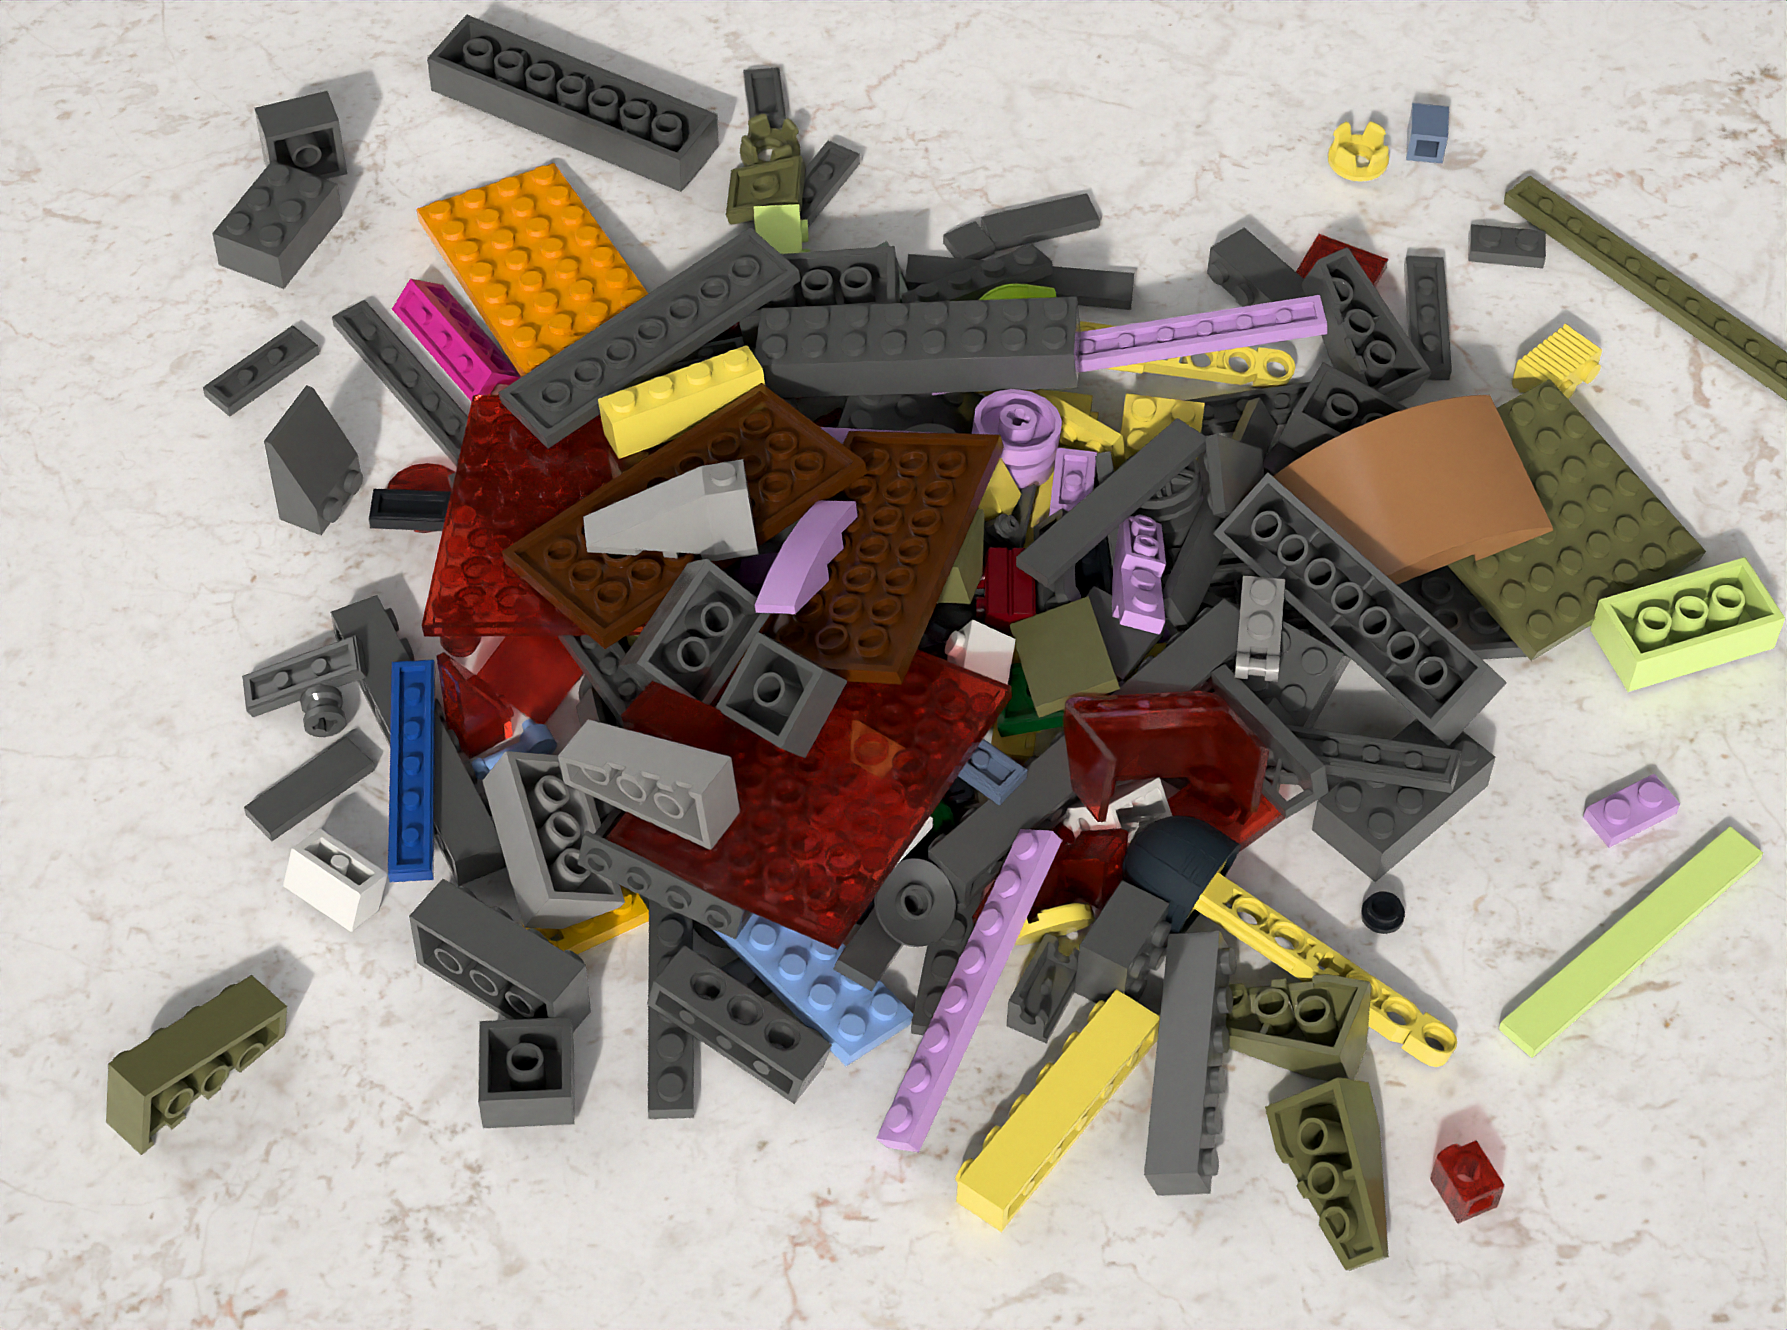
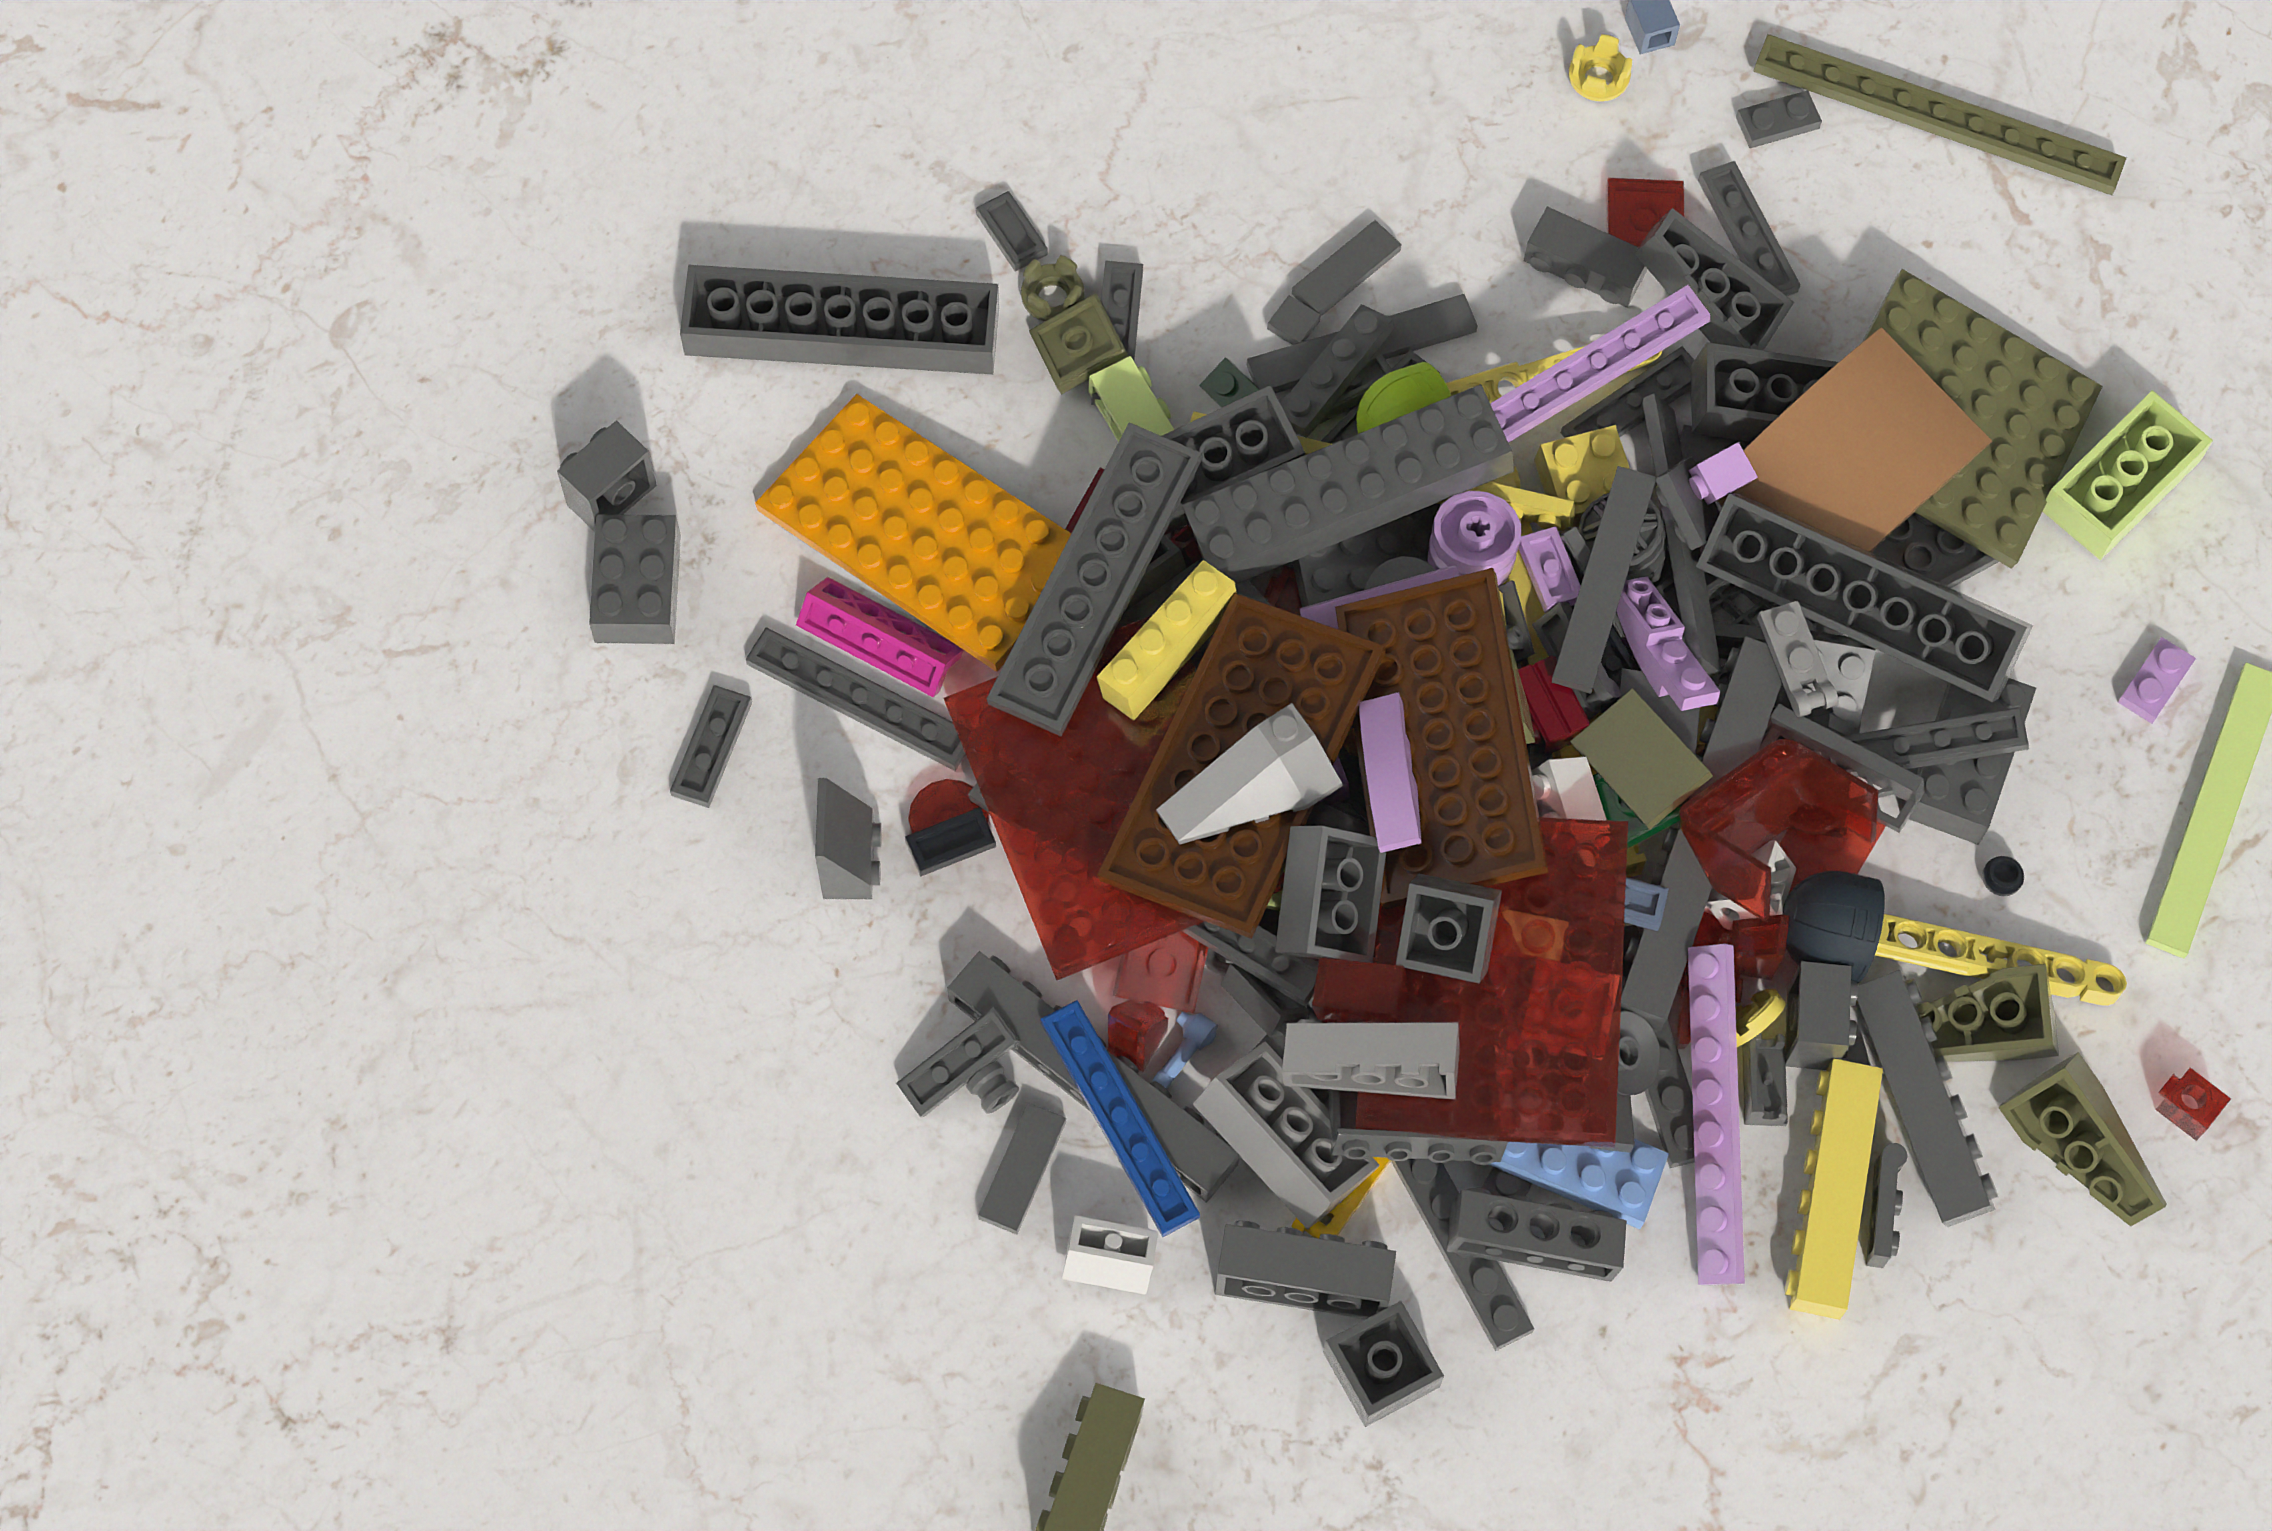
camera: 25 degrees left, 15 degrees up
(1101, 1141) = (1885, 1203): none -> dark grey plate
(1274, 455) = (1721, 474): none -> lavender brick
(1563, 358) = (1889, 240): light yellow brick -> none

